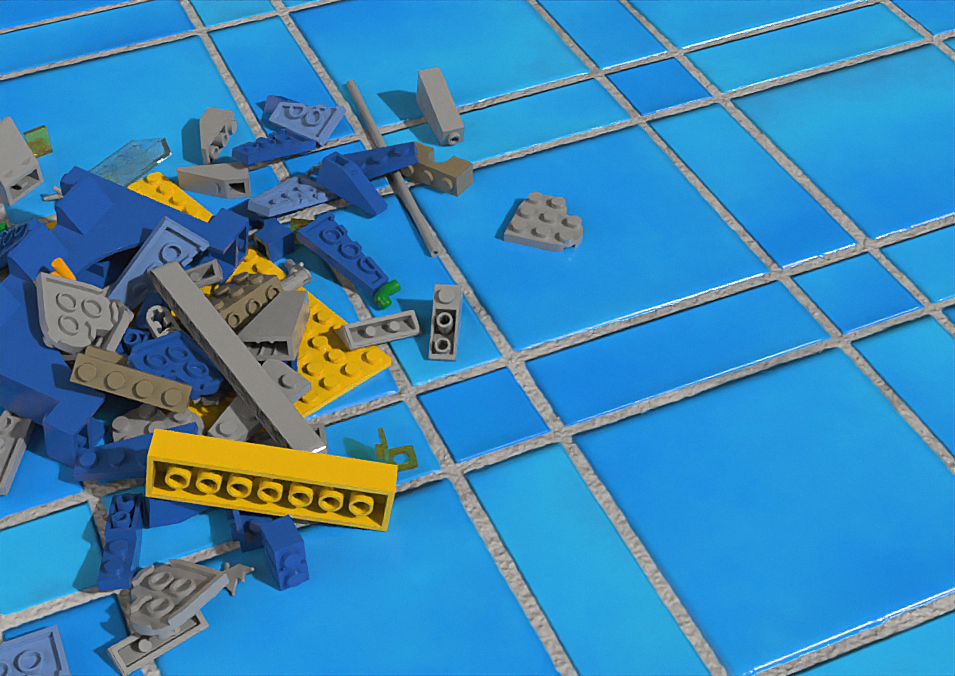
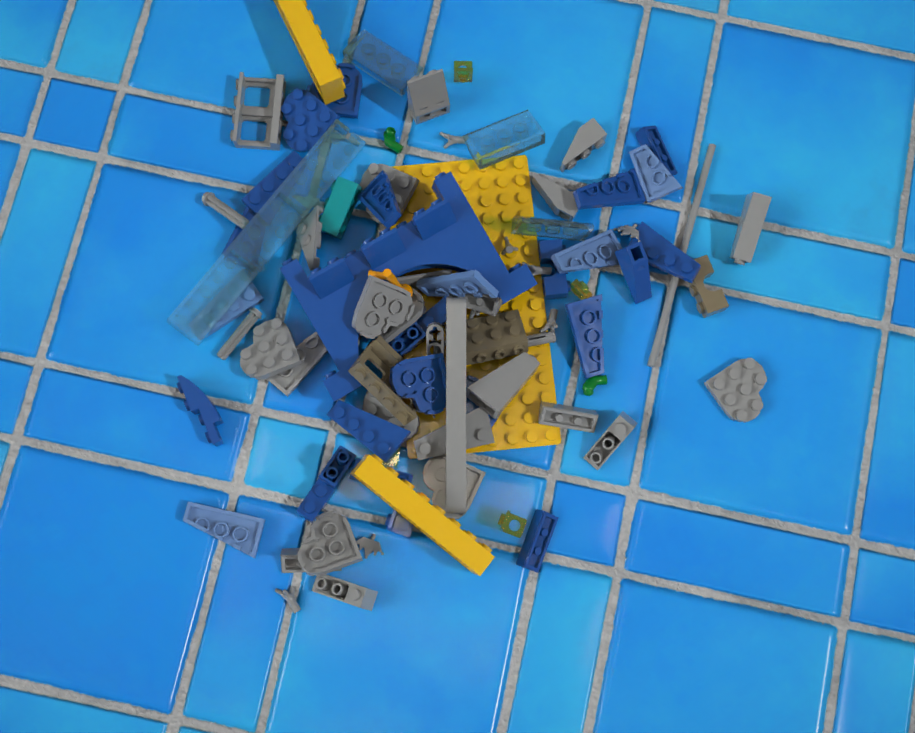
camera: 30 degrees right, 35 degrees up
(224, 190) = (551, 228): none -> clear light blue slope
(231, 637) = (345, 591): none -> light grey slope
(284, 552) = (402, 562): blue piece -> none
(440, 455) = (537, 540): none -> blue slope

